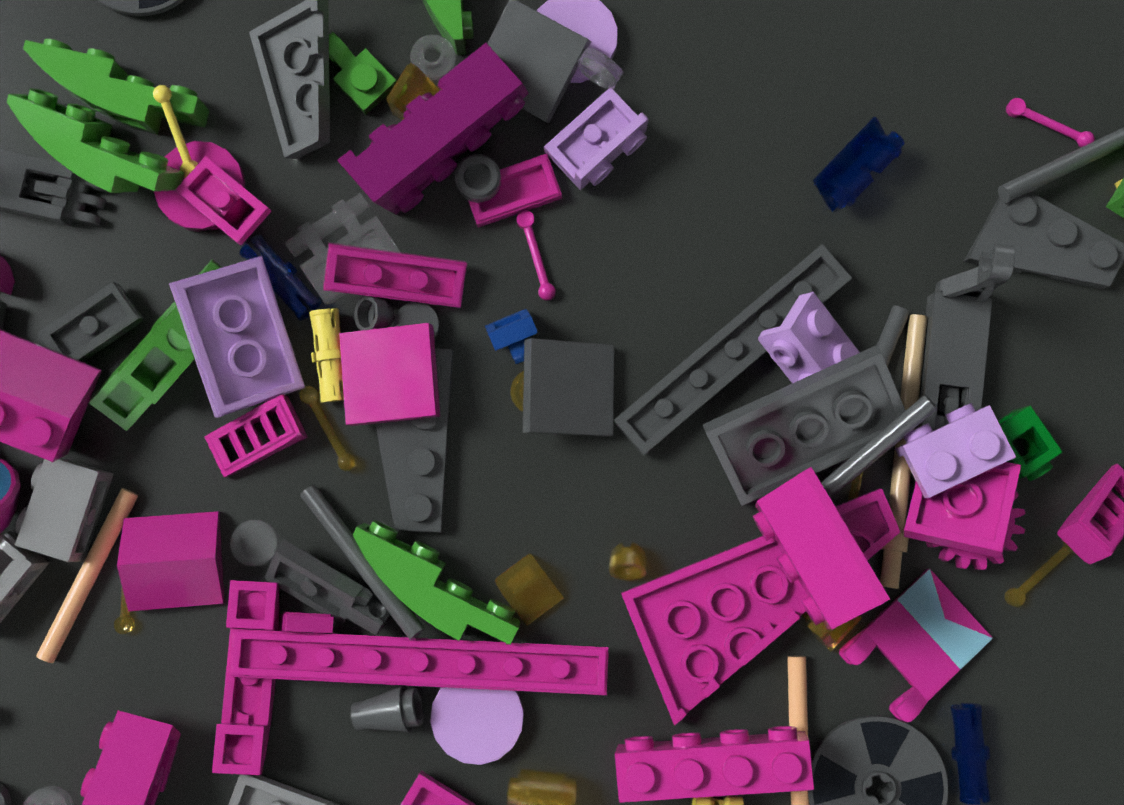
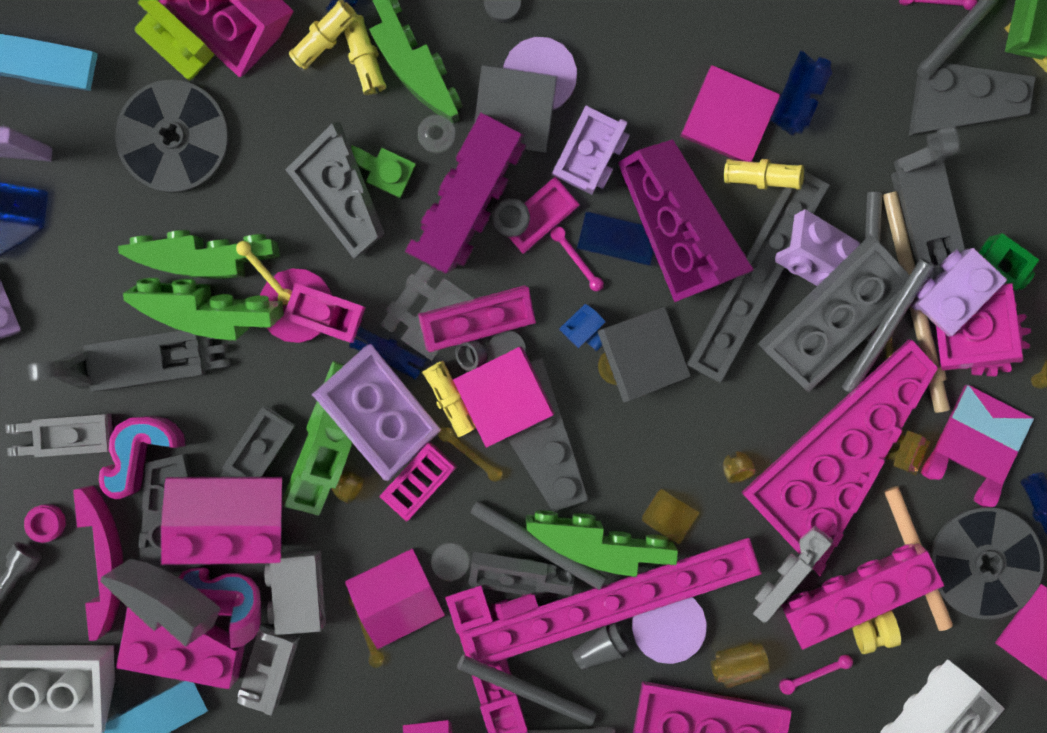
camera: 20 degrees left, 5 degrees up
(87, 576) = (334, 633): light nougat bar -> none
(173, 411) = (348, 487): none -> clear yellow hinge
(279, 726) = (526, 690): none -> dark grey bar
(407, 88) = (433, 170): clear yellow slope -> none
(590, 249) = (615, 239): none -> clear blue plate
(599, 68) = (573, 95): clear tile -> none
(644, 704) = (793, 571): none -> light grey hinge
(667, 254) = (681, 221): none -> magenta wedge
(768, 161) = (730, 115): none -> dark pink tile
(782, 237) = (764, 174): none -> light yellow pin
(819, 551) = (884, 409): dark pink slope -> none

